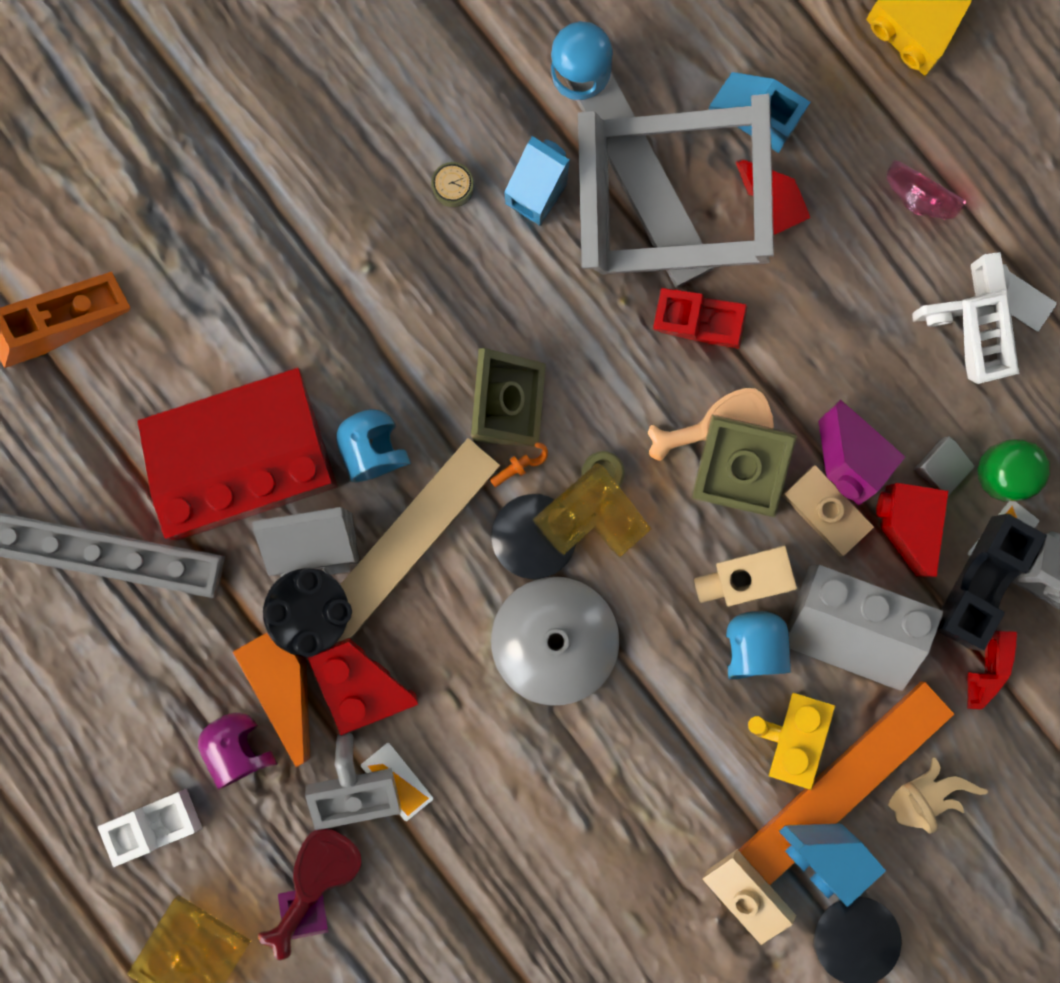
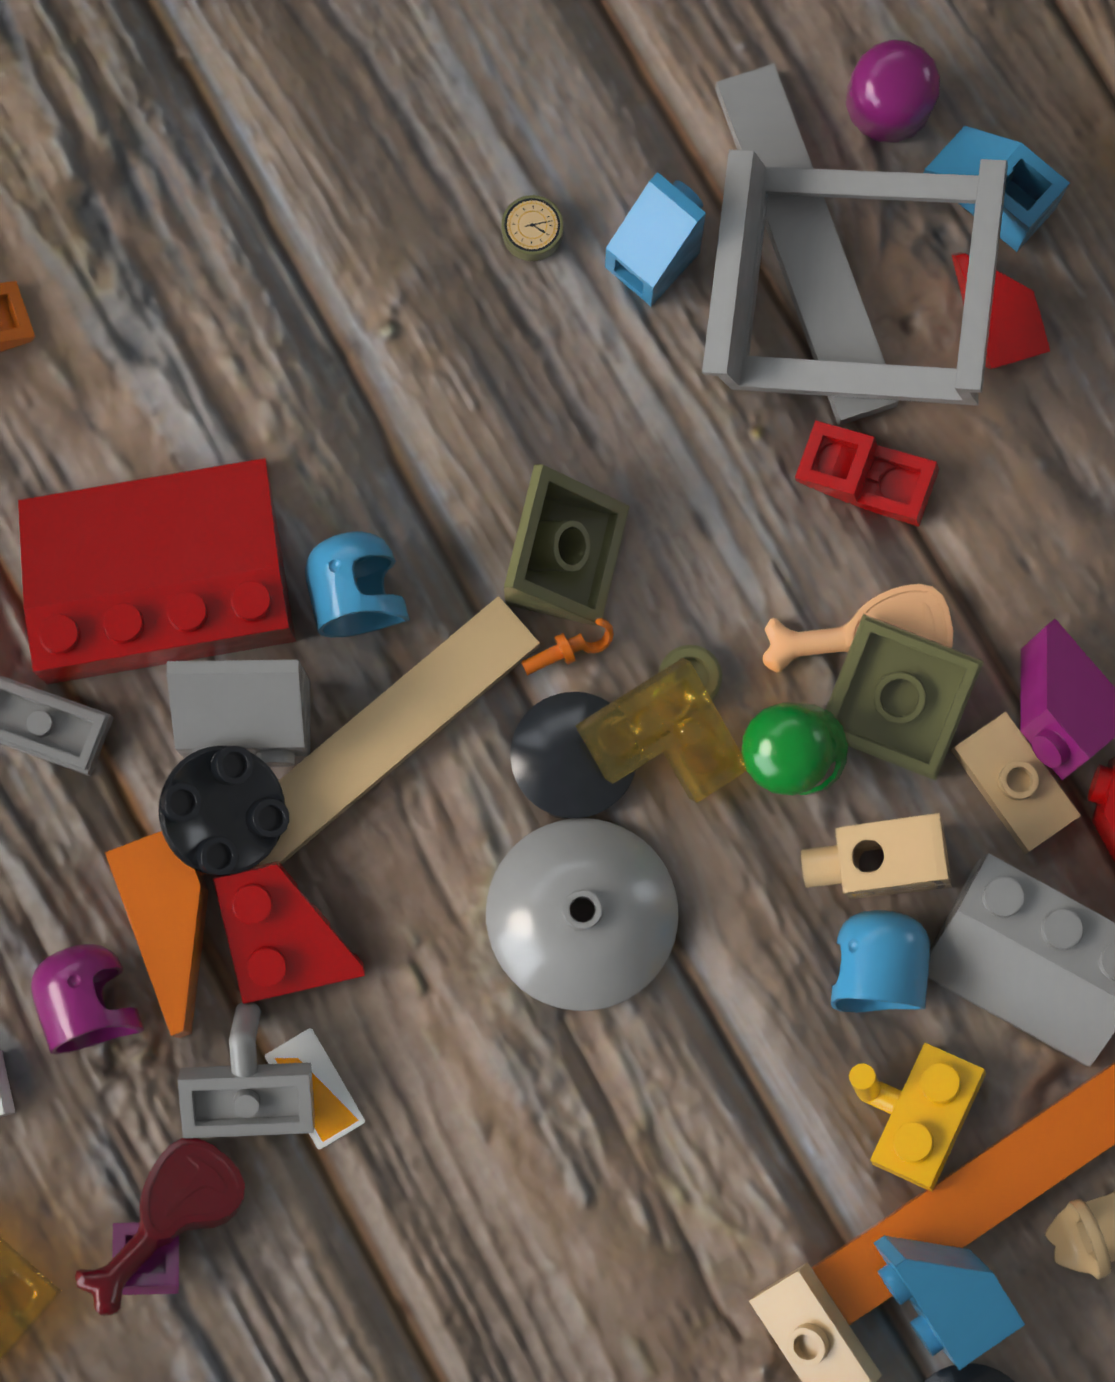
camera: 10 degrees right, 5 degrees down
(582, 55) = (747, 69): dark azure helmet -> none
(680, 512) = (793, 747): none -> green helmet
(681, 55) = (893, 91): none -> magenta helmet

